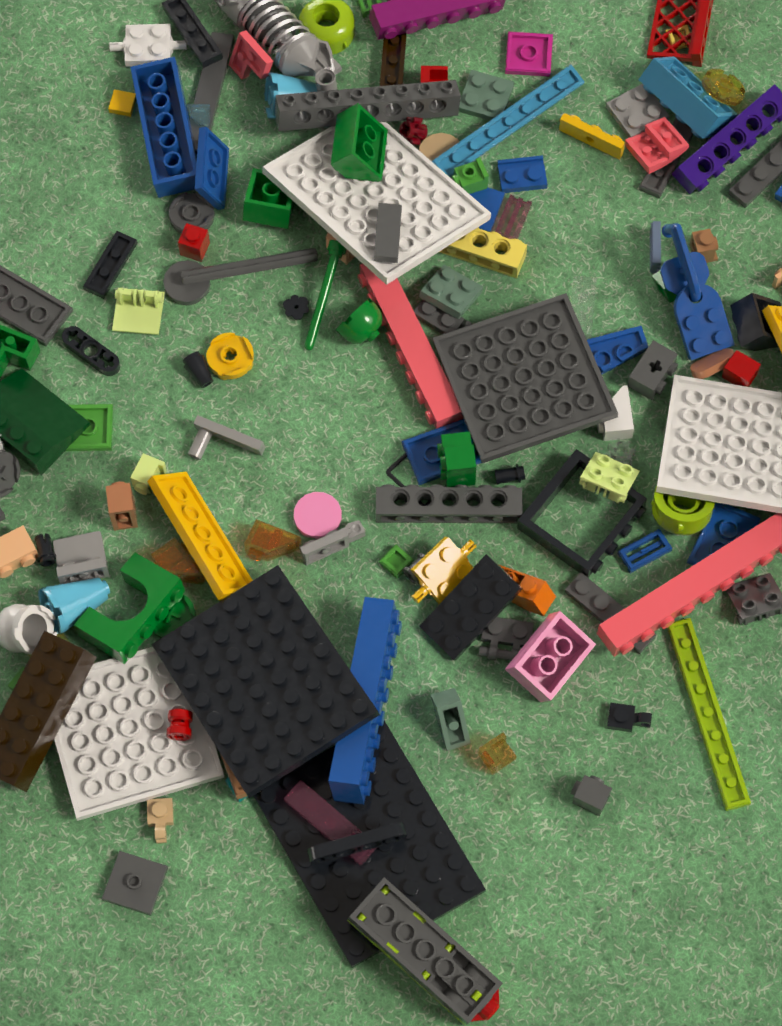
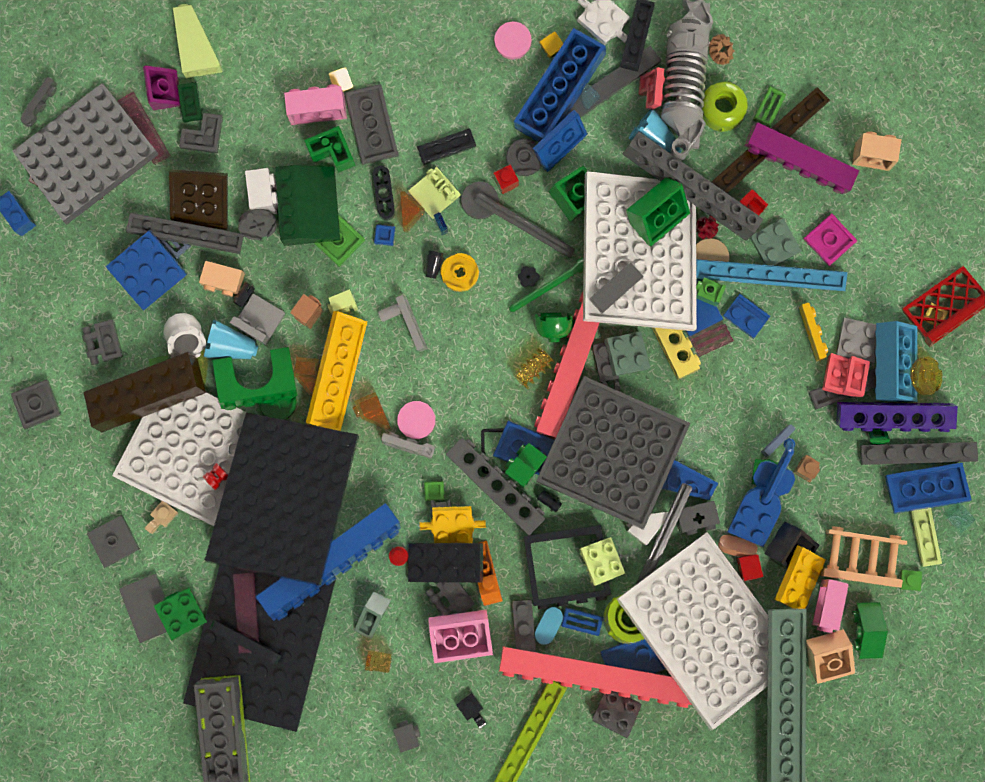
camera: 45 degrees right, 15 degrees up
(82, 128) = (512, 40): none -> bright pink tile
(127, 386) = (384, 235): none -> blue tile
(131, 342) = (411, 211): none -> clear orange slope
(171, 330) = (440, 223): none -> tile
(230, 912) = (139, 602): none -> dark grey tile
(267, 884) = (179, 613): none -> green plate
(378, 374) = (533, 368): none -> clear yellow piece
(421, 646) = (398, 556): none -> red plate
(619, 581) = (548, 625): none -> medium azure tile
(638, 403) = (666, 531): none -> dark grey axle
(735, 170) = (878, 437): none -> green slope

